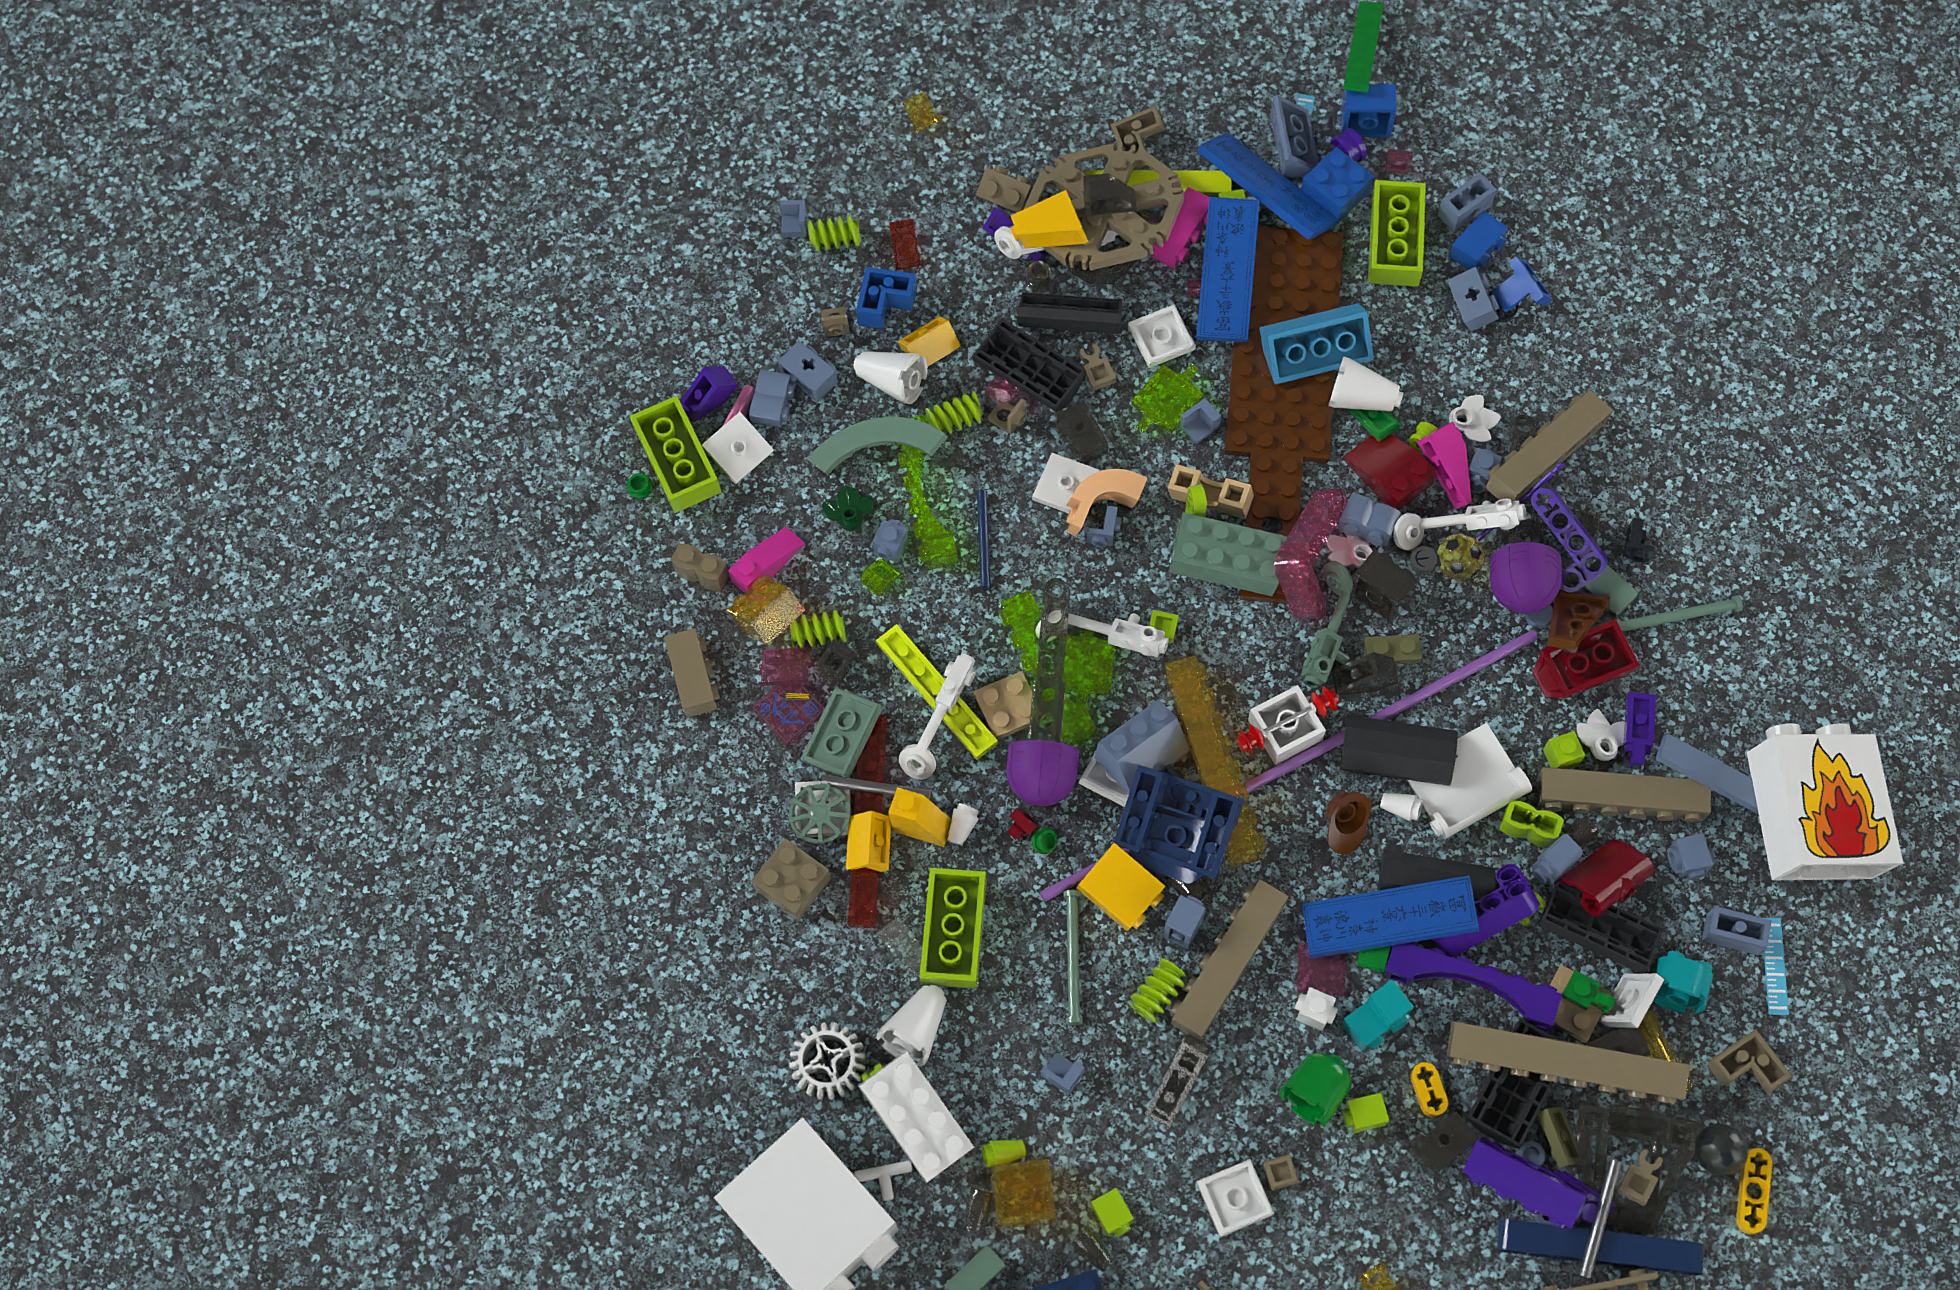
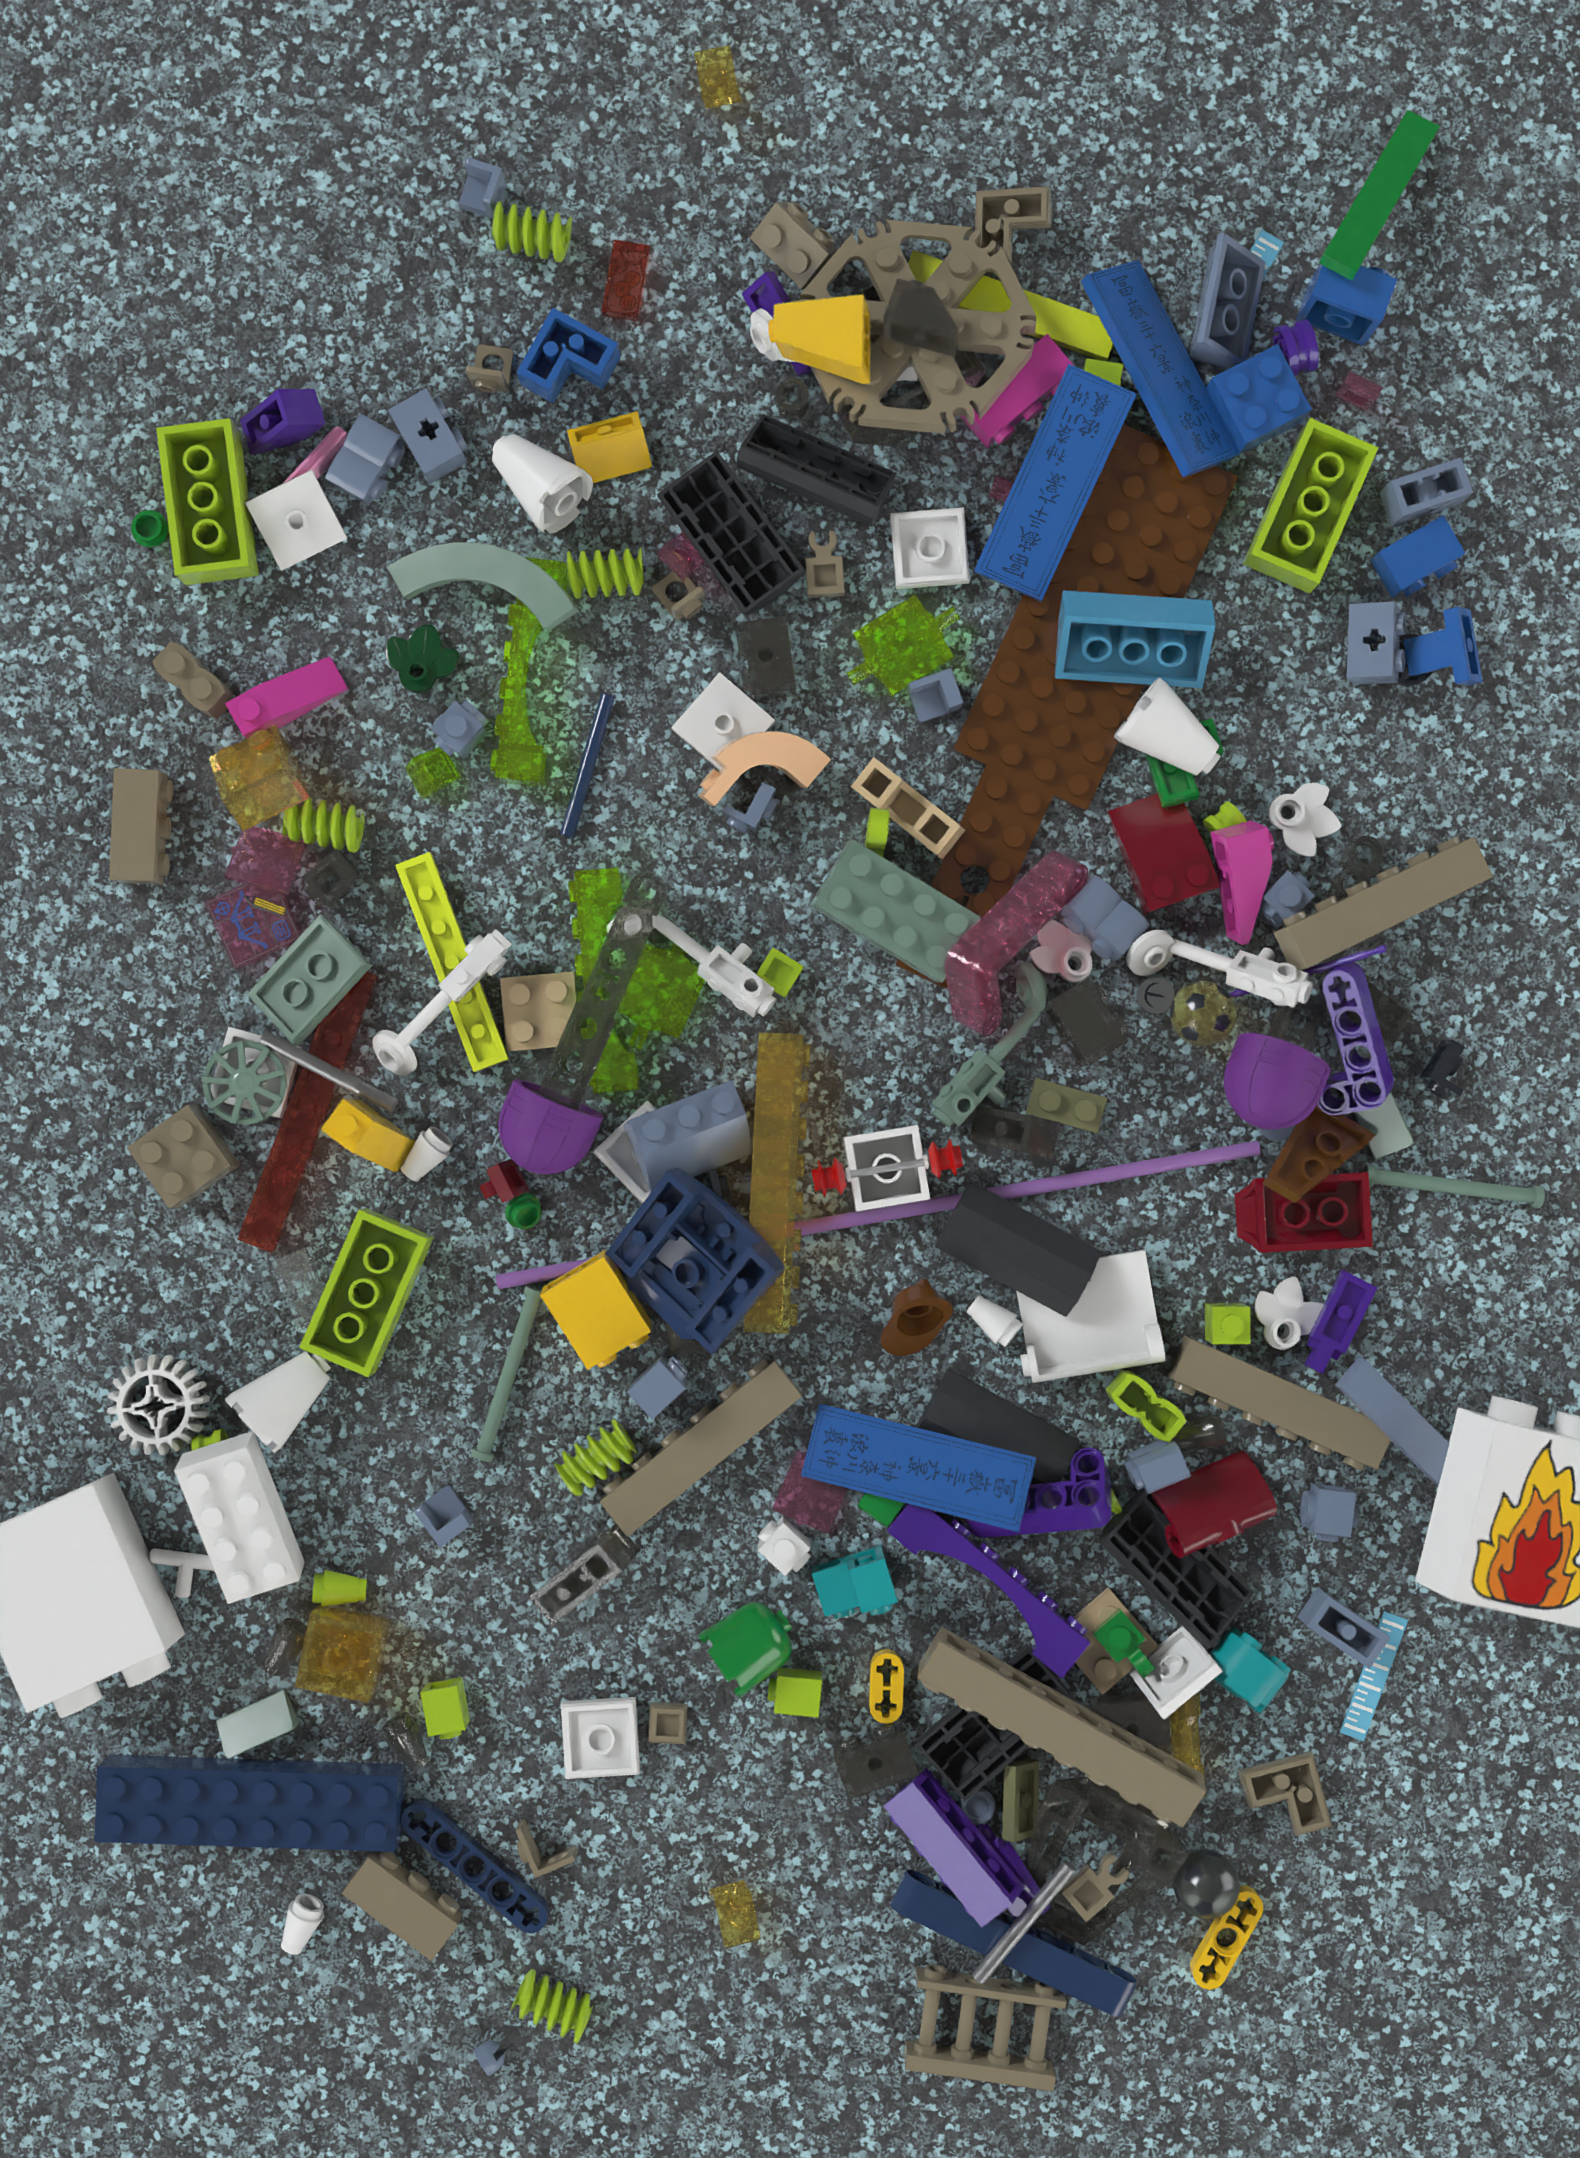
camera: 10 degrees right, 20 degrees up
(868, 841) = (294, 1144): yellow panel -> none

